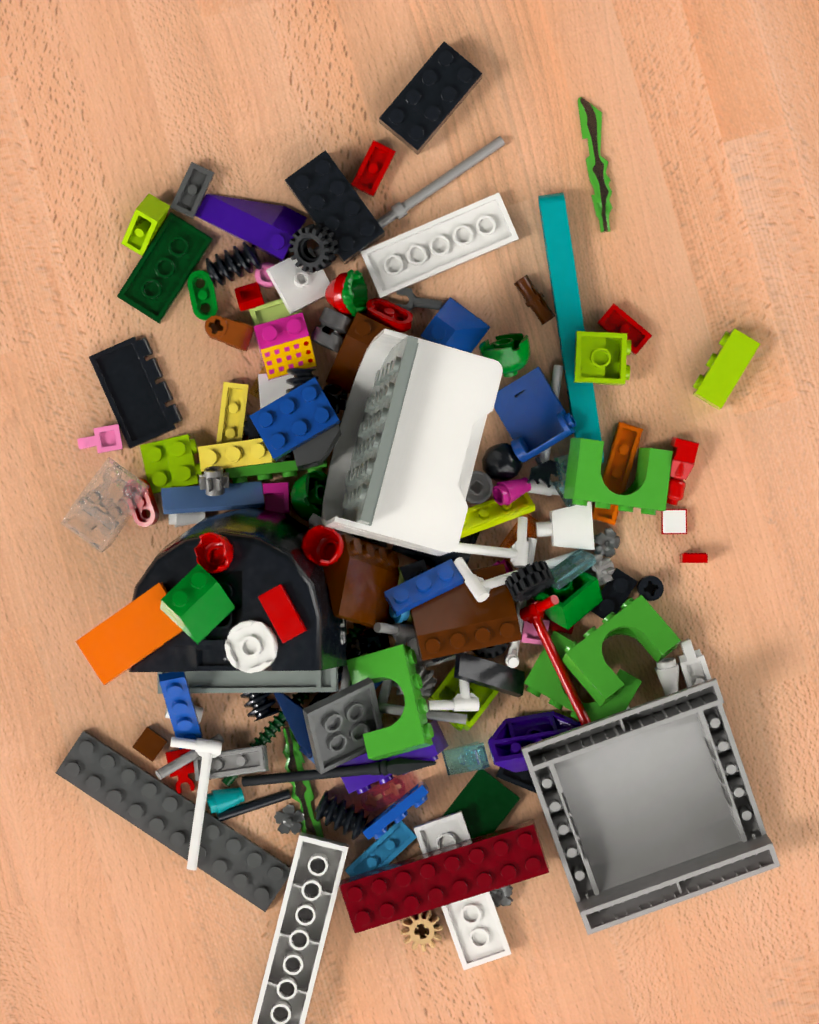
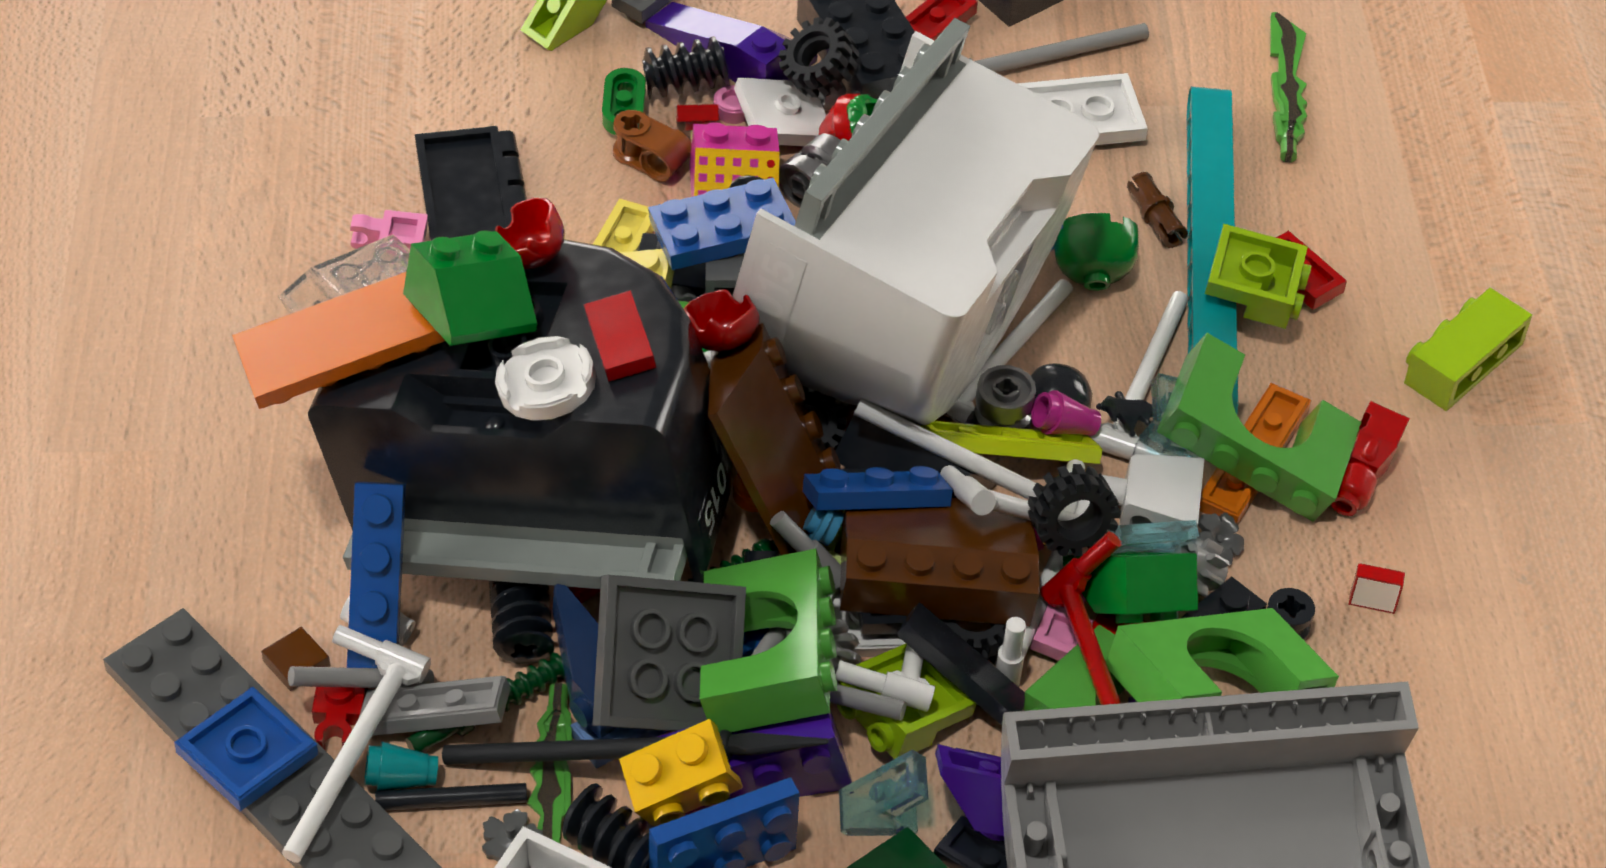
camera: 10 degrees right, 40 degrees down
(148, 813) = (246, 748): none -> blue tile
(165, 267) = (572, 67): dark green tile -> none
(365, 788) = (679, 774): none -> yellow bracket
(534, 417) = (1123, 336): blue door -> none
(674, 521) = (1346, 537): white tile -> none

